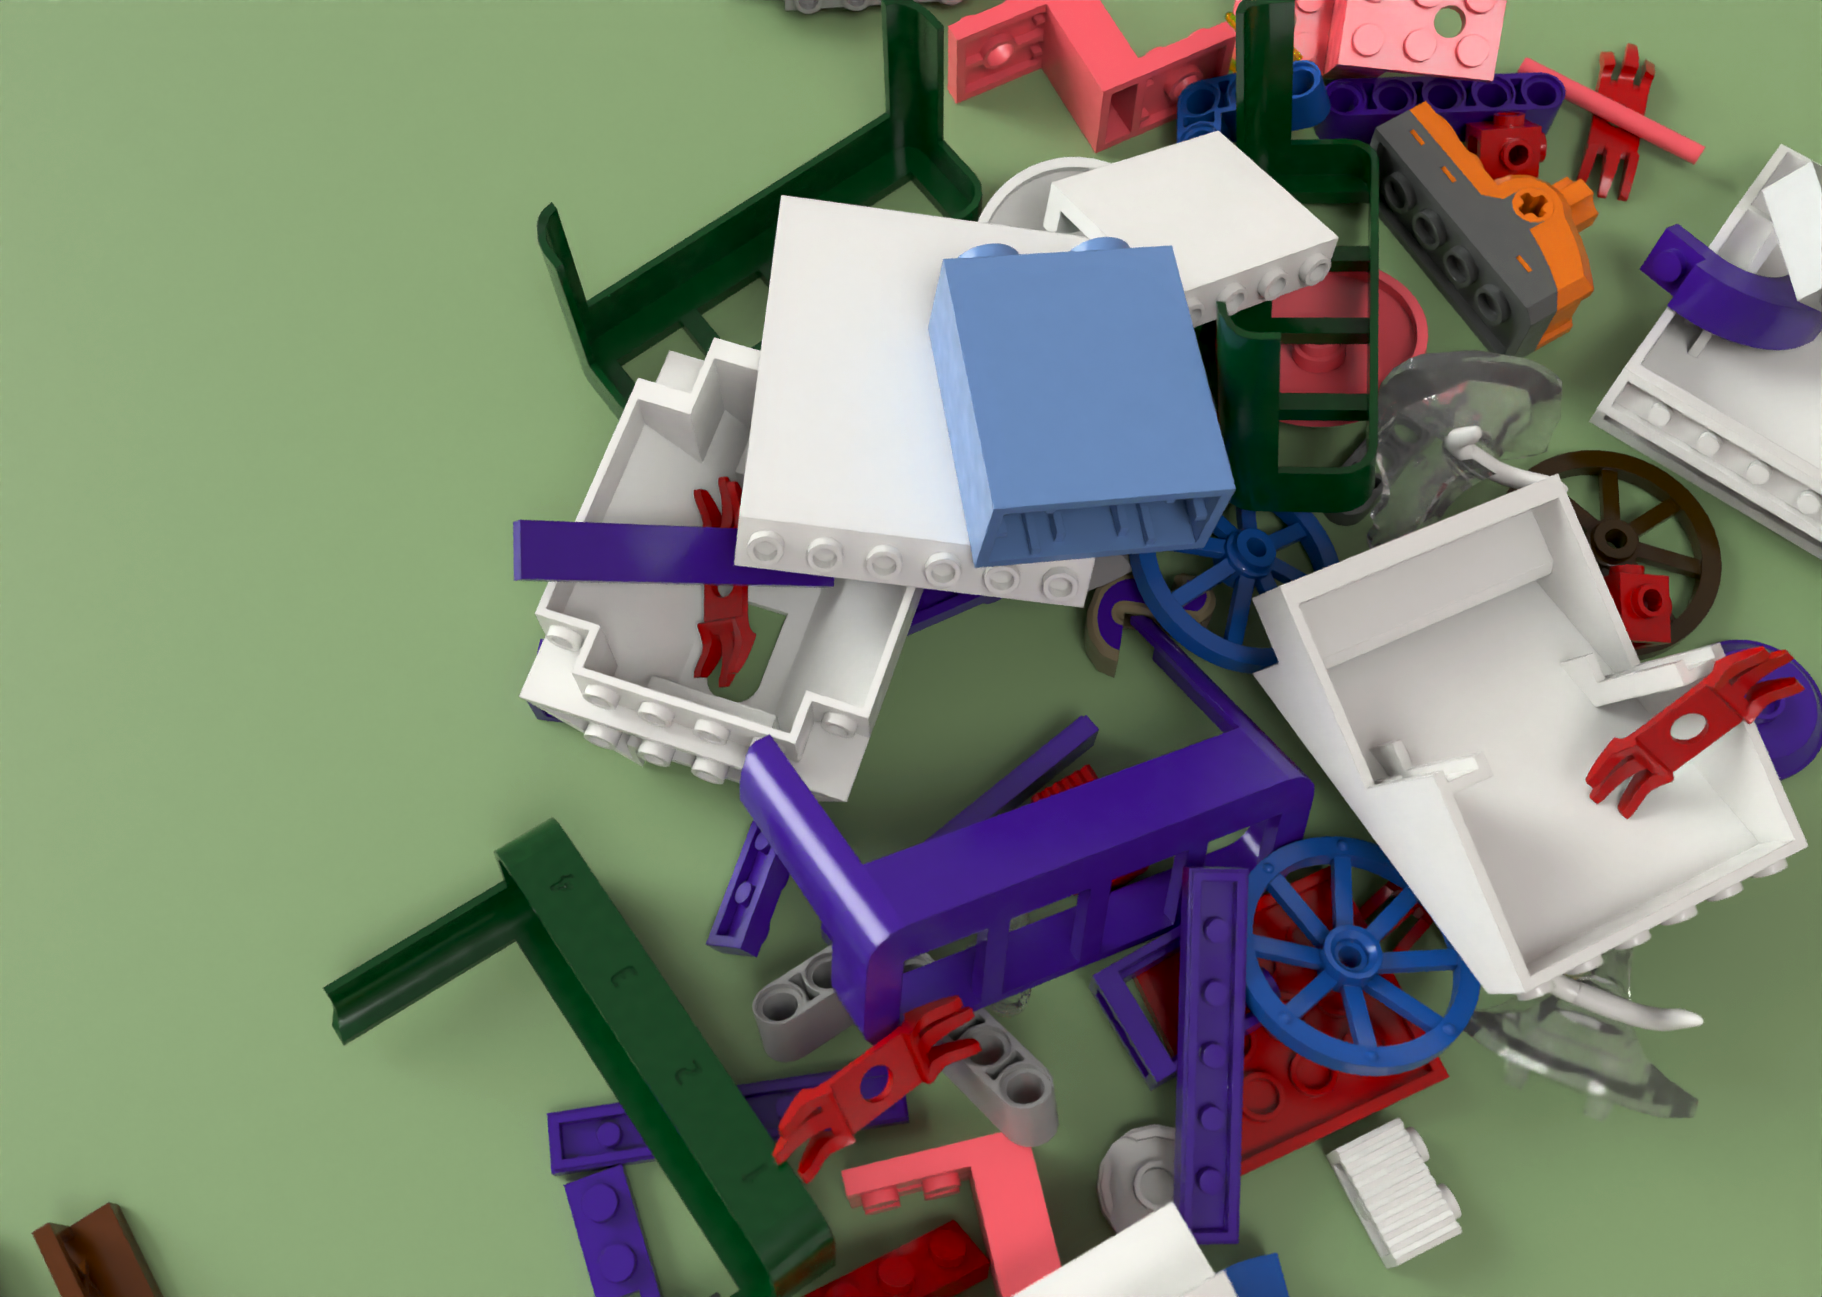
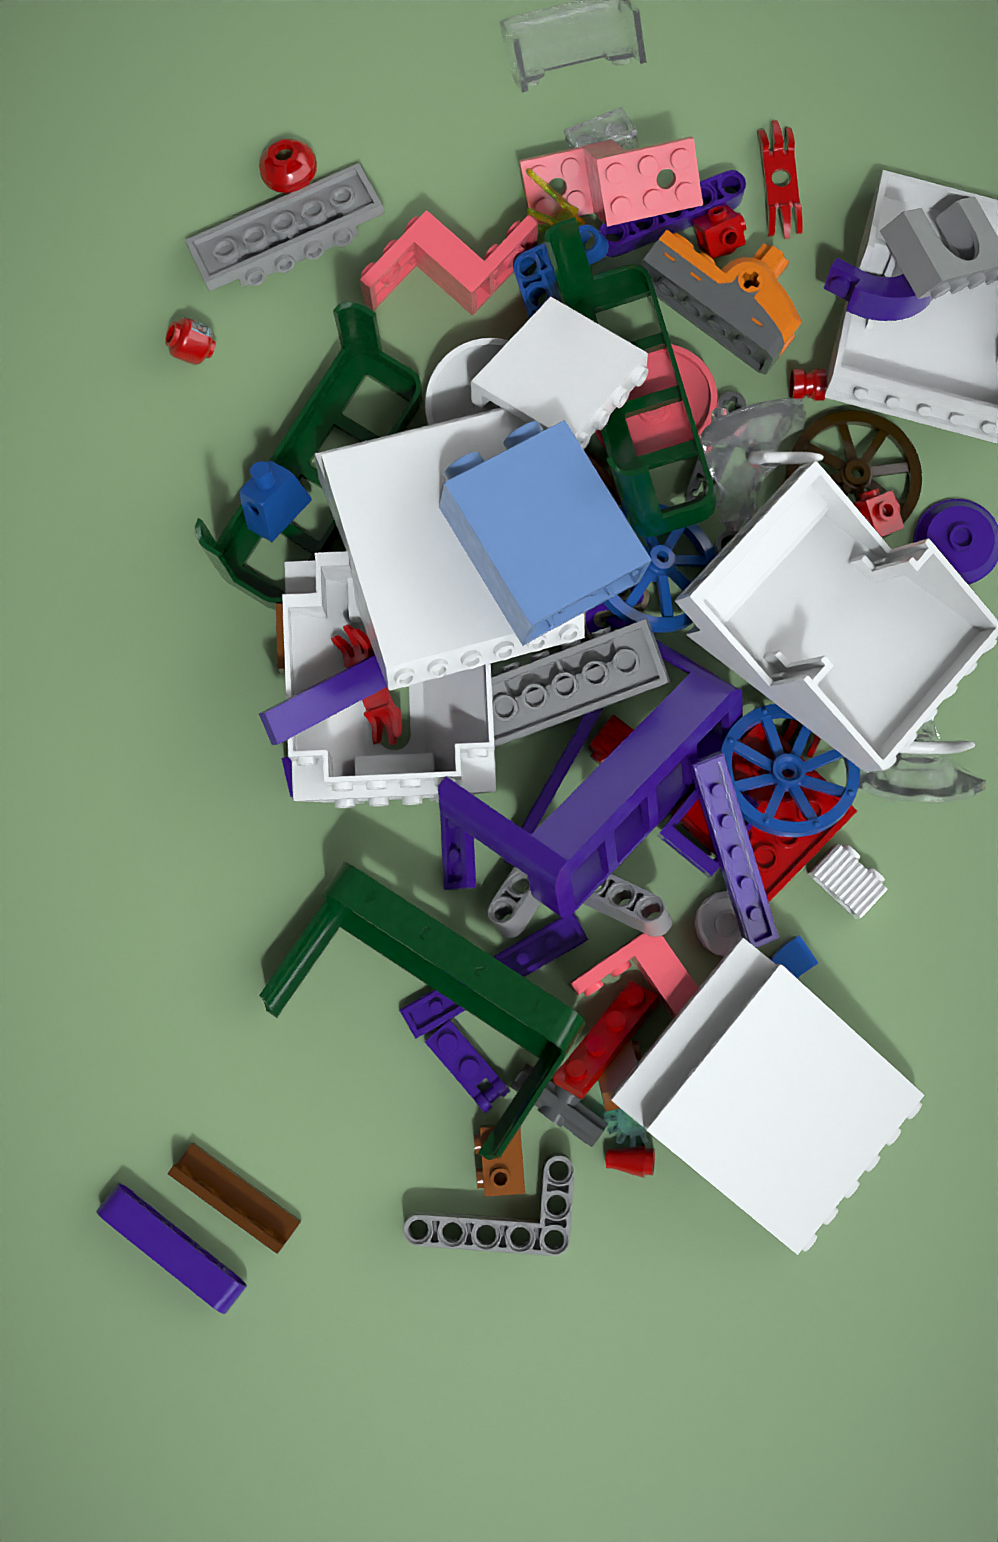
camera: 25 degrees left, 15 degrees up
(681, 49) = (190, 341): none -> red head
(695, 269) = (272, 499): none -> blue torso
(909, 1062) = (562, 958): red piece -> none
(1043, 686) = (575, 680): none -> light grey plate
(1580, 396) = (810, 385): none -> red wheel
(1621, 115) = (777, 178): coral bar -> none
(1655, 754) = (912, 607): red piece -> none

